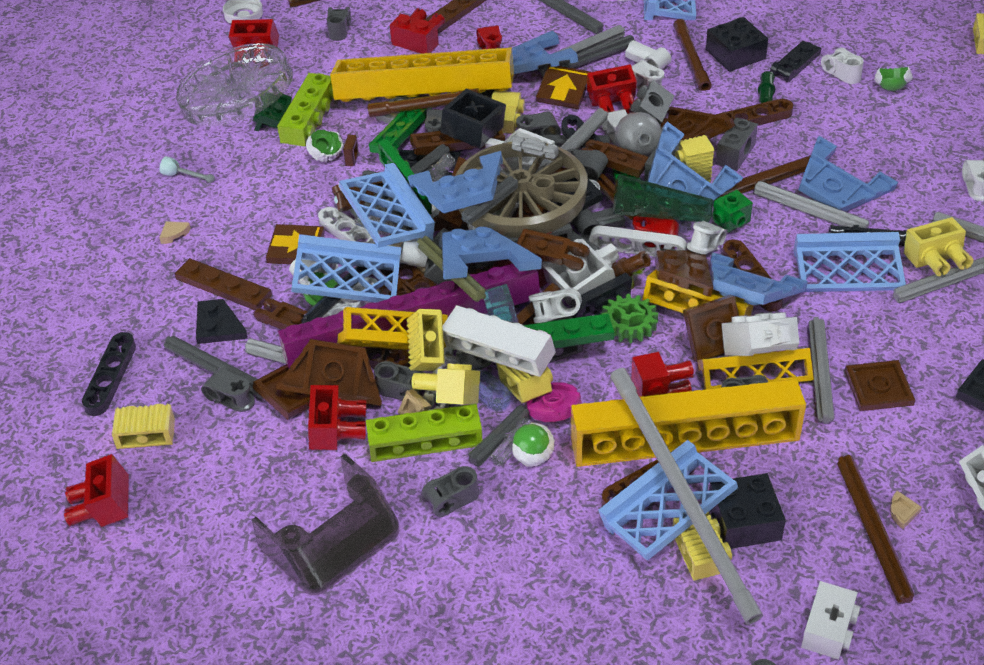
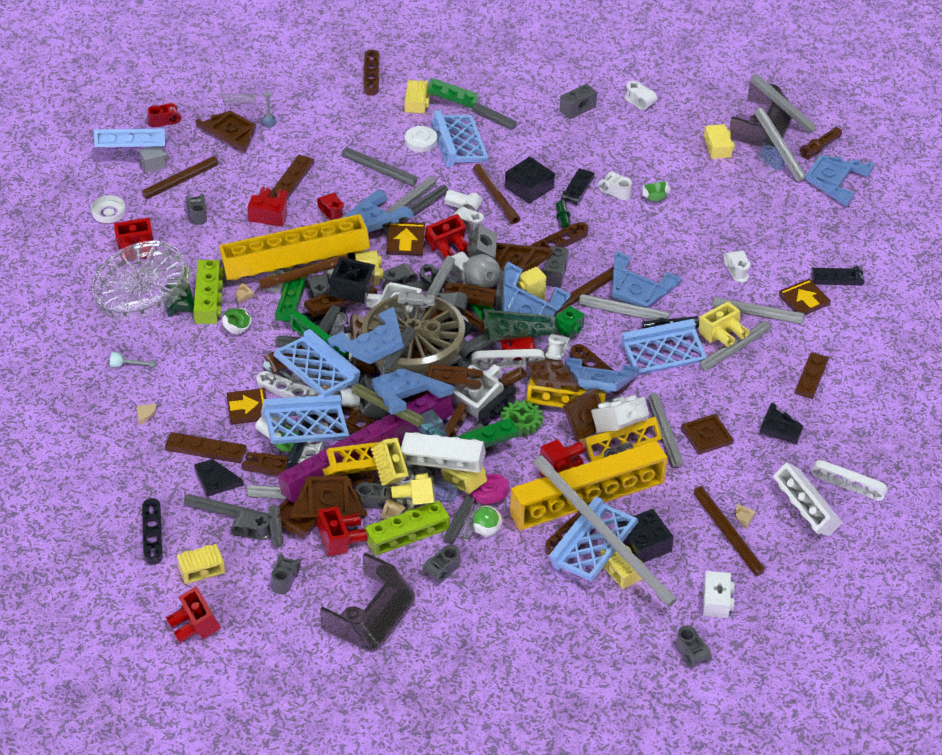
camera: 20 degrees left, 0 degrees up
(241, 461) = (284, 574): none -> dark grey piece
(255, 395) = (275, 525): none -> dark grey axle
(350, 118) = (244, 293): none -> tan tile
(351, 150) = (259, 321): reddish brown tile -> none
(553, 304) = (468, 418): white piece -> none

